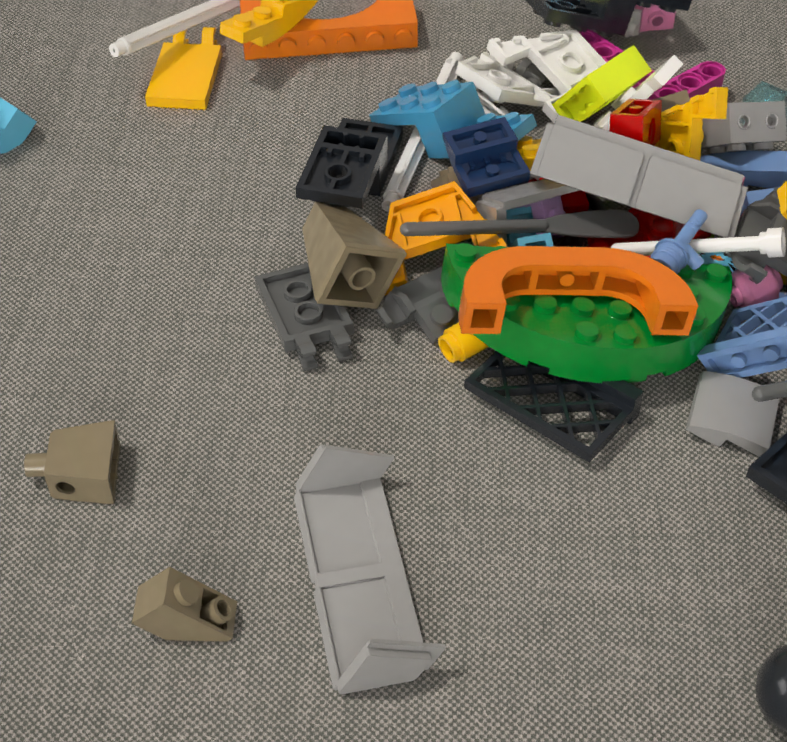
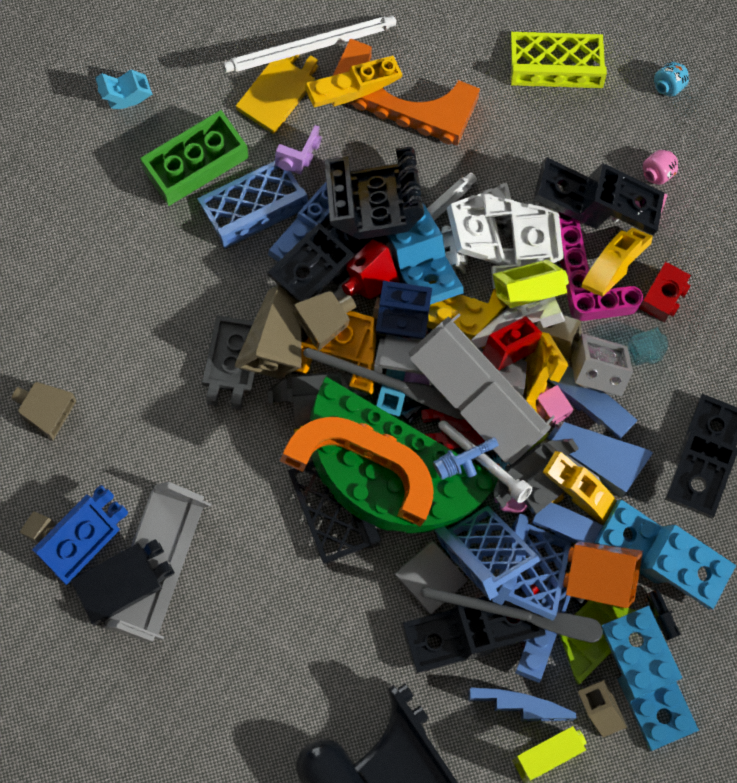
camera: 25 degrees right, 25 degrees up
(125, 147) = (194, 157): none -> bright green brick
(229, 581) = (80, 534): none -> blue tile
(236, 175) = (258, 220): none -> medium blue fence
(247, 104) = (295, 160): none -> lavender bracket
(301, 143) = (313, 212): none -> medium blue slope
(328, 614) = (121, 581): none -> black tile
(393, 199) = (323, 317): none -> dark tan torso
(395, 80) = (376, 198): none -> black slope
(415, 150) = (369, 270): none -> red torso
(668, 41) = (615, 259): none -> yellow slope
(741, 60) = (669, 279): none -> red brick

